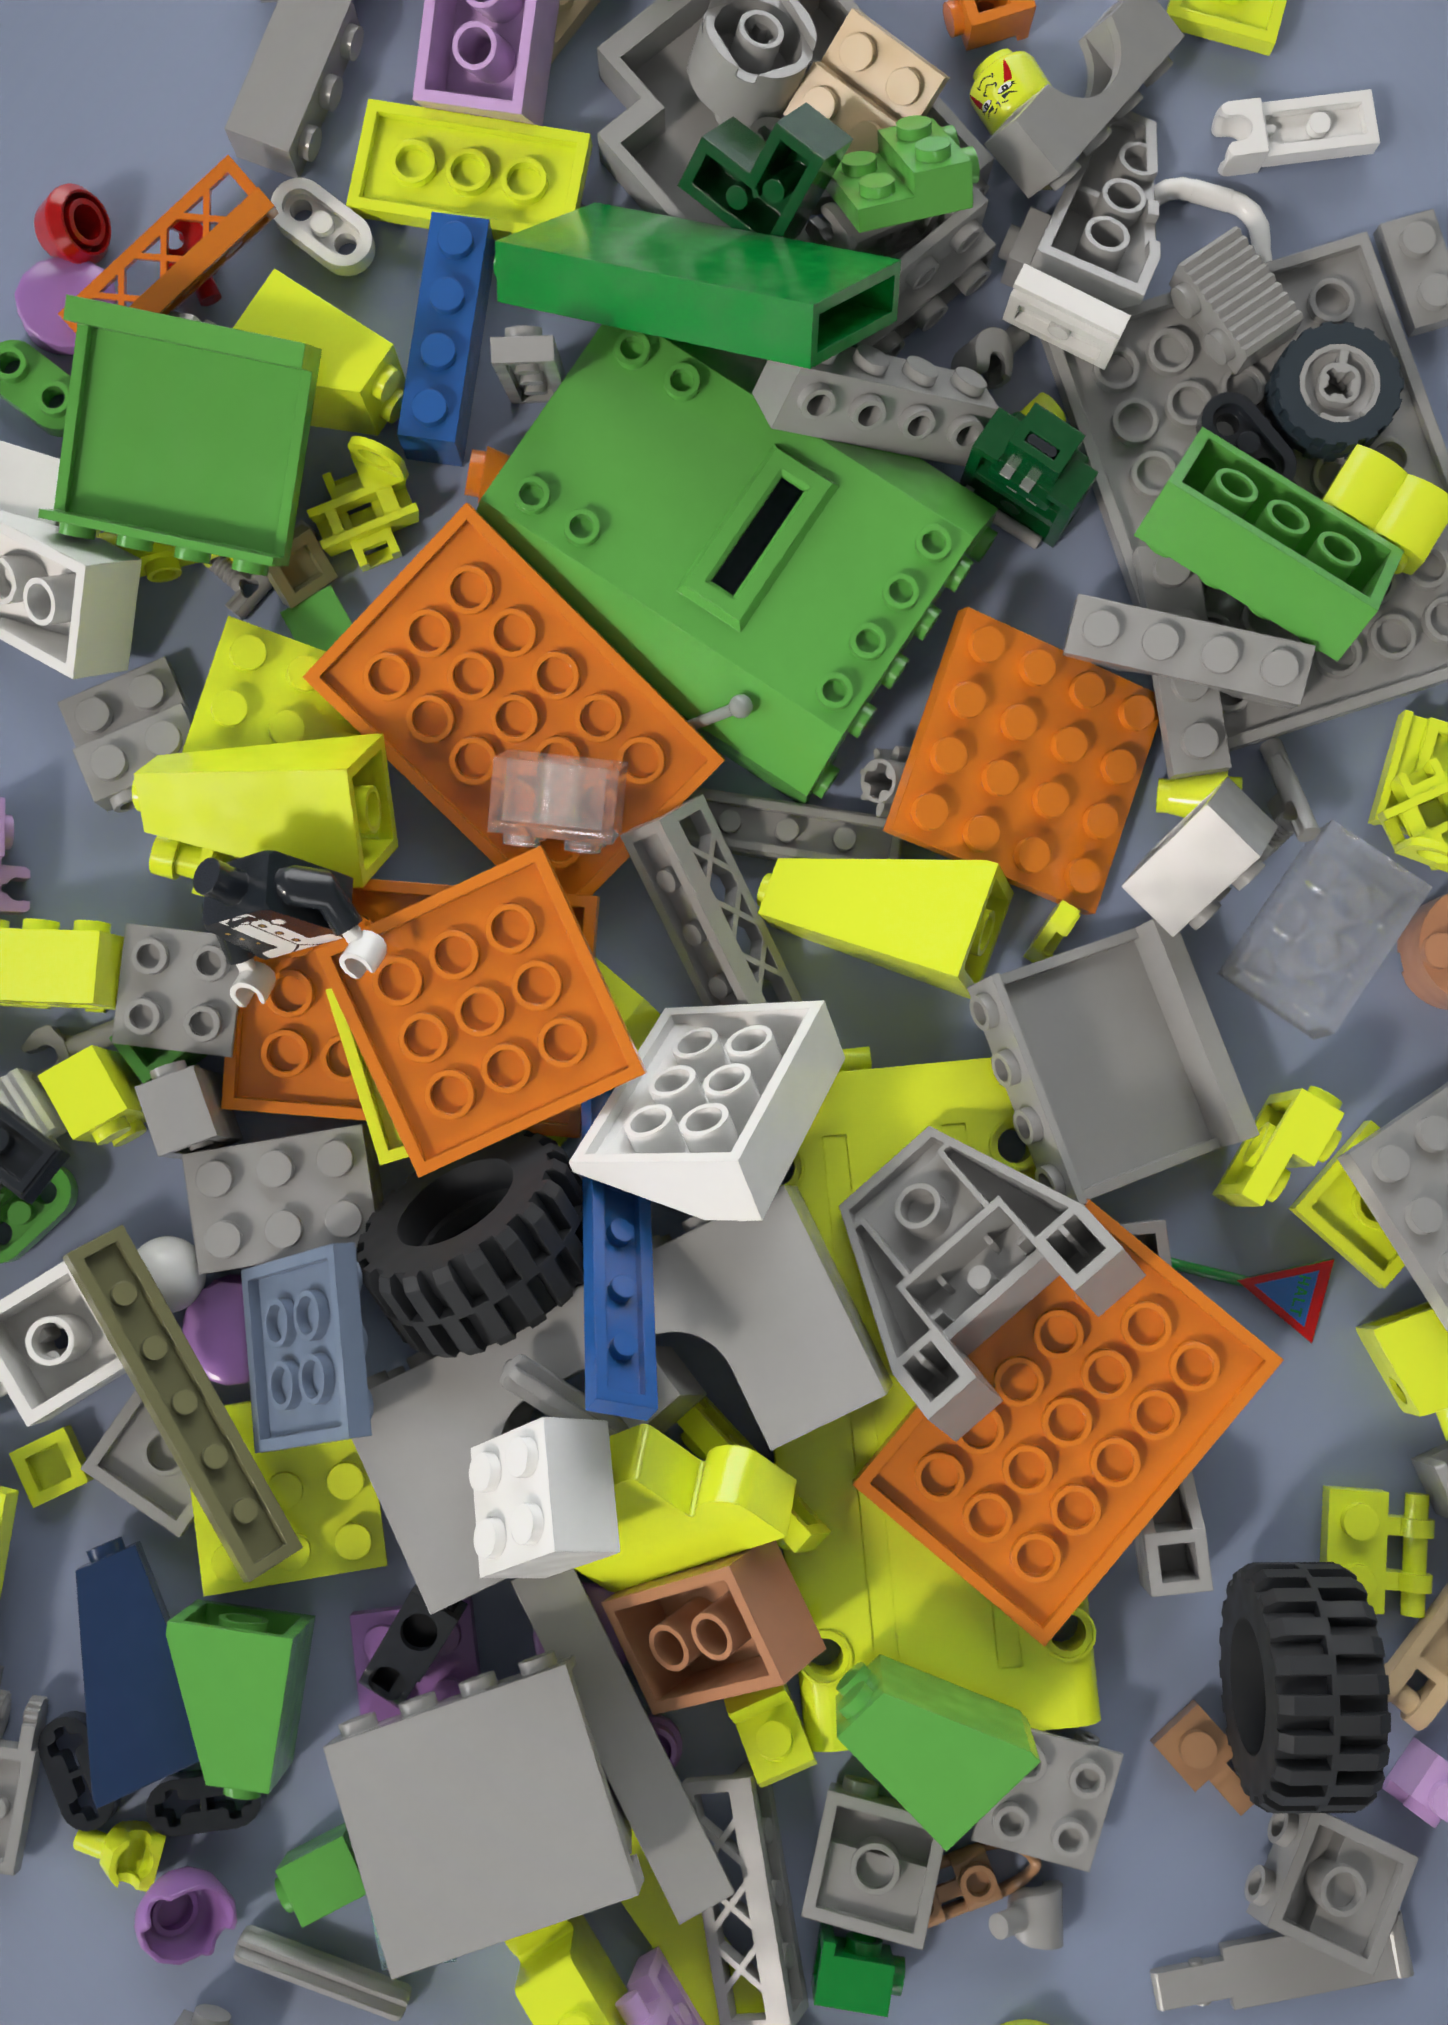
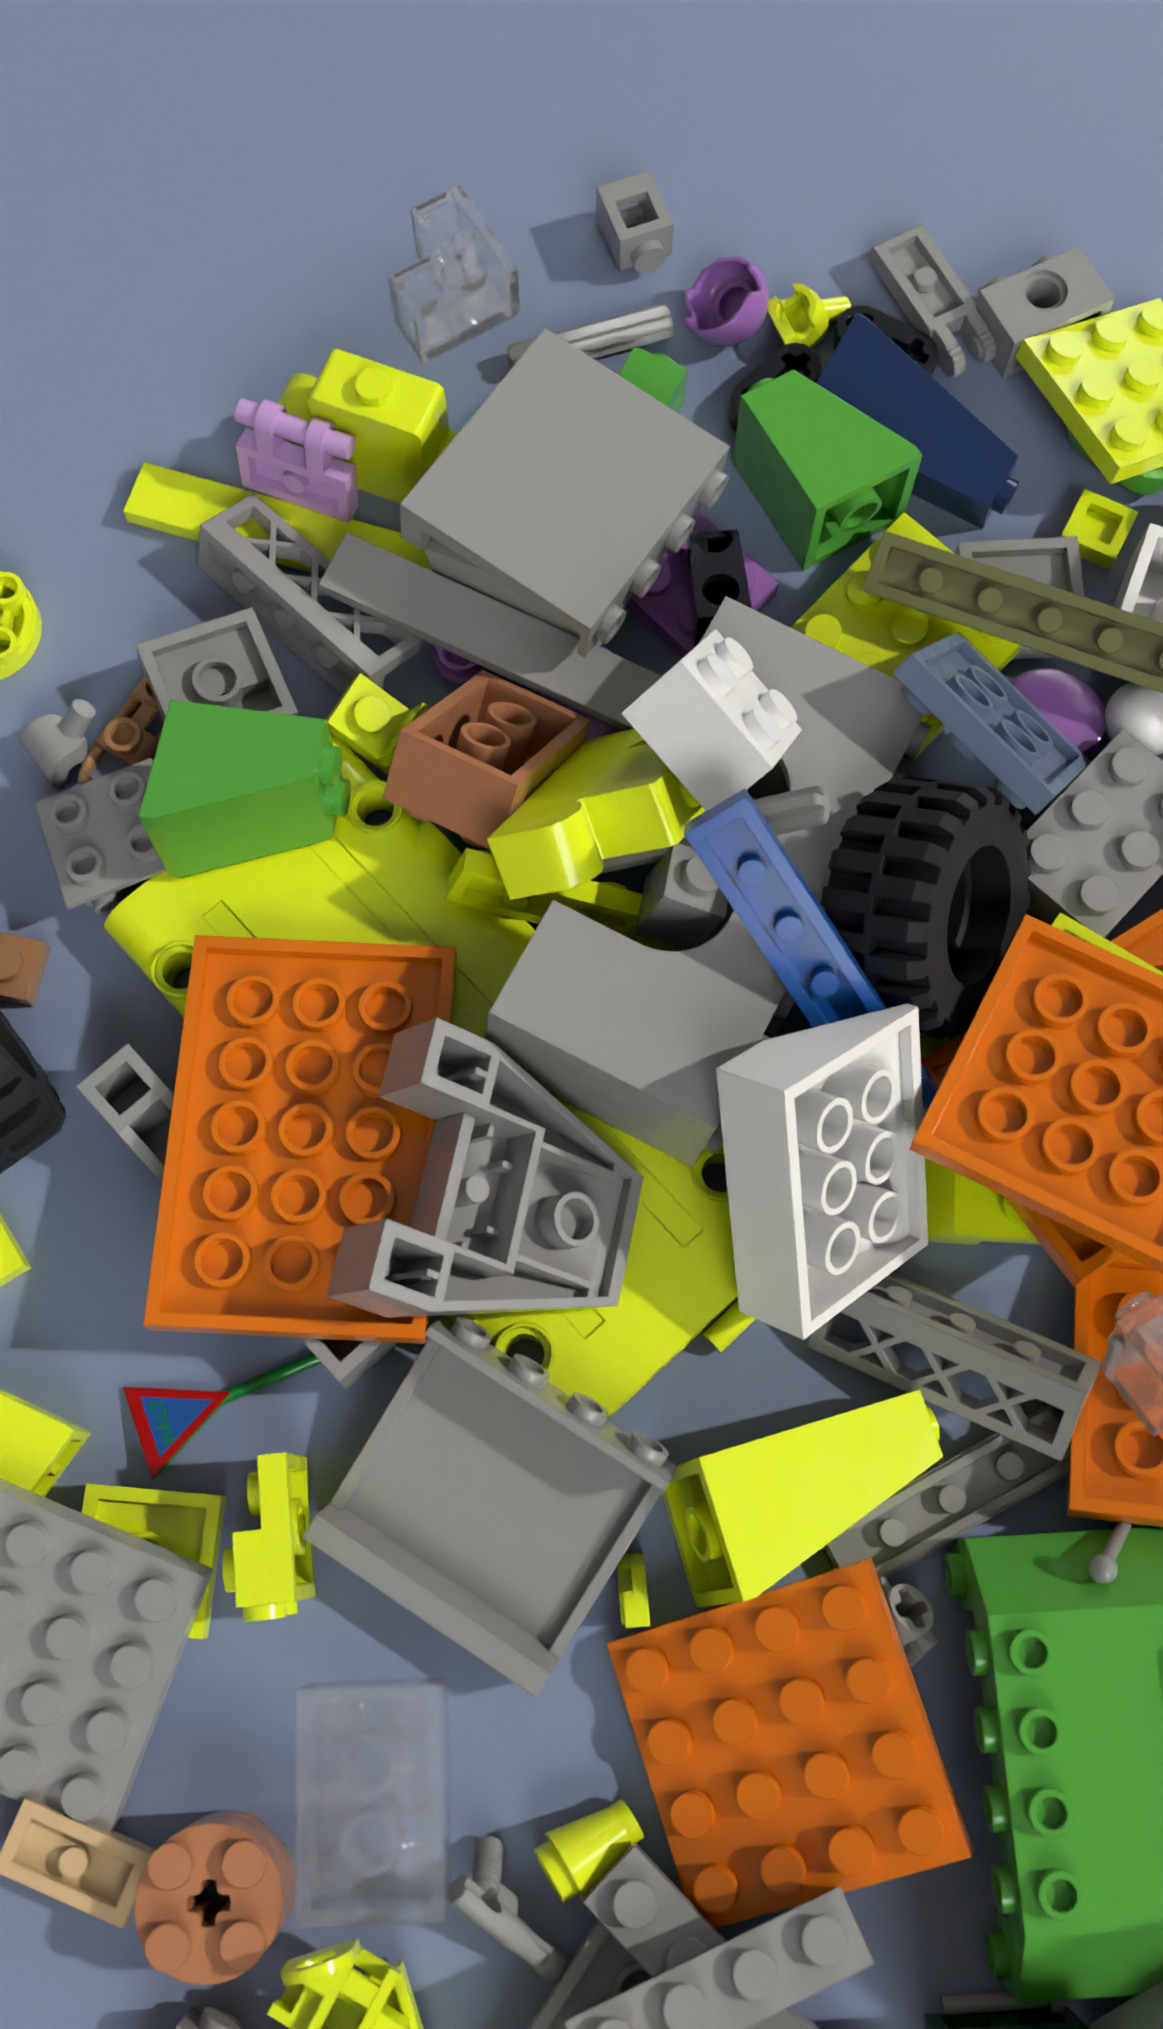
camera: 150 degrees right, 10 degrees down
(855, 1972) = (174, 600): green brick -> none
(1200, 857) = (545, 1773): brick -> none

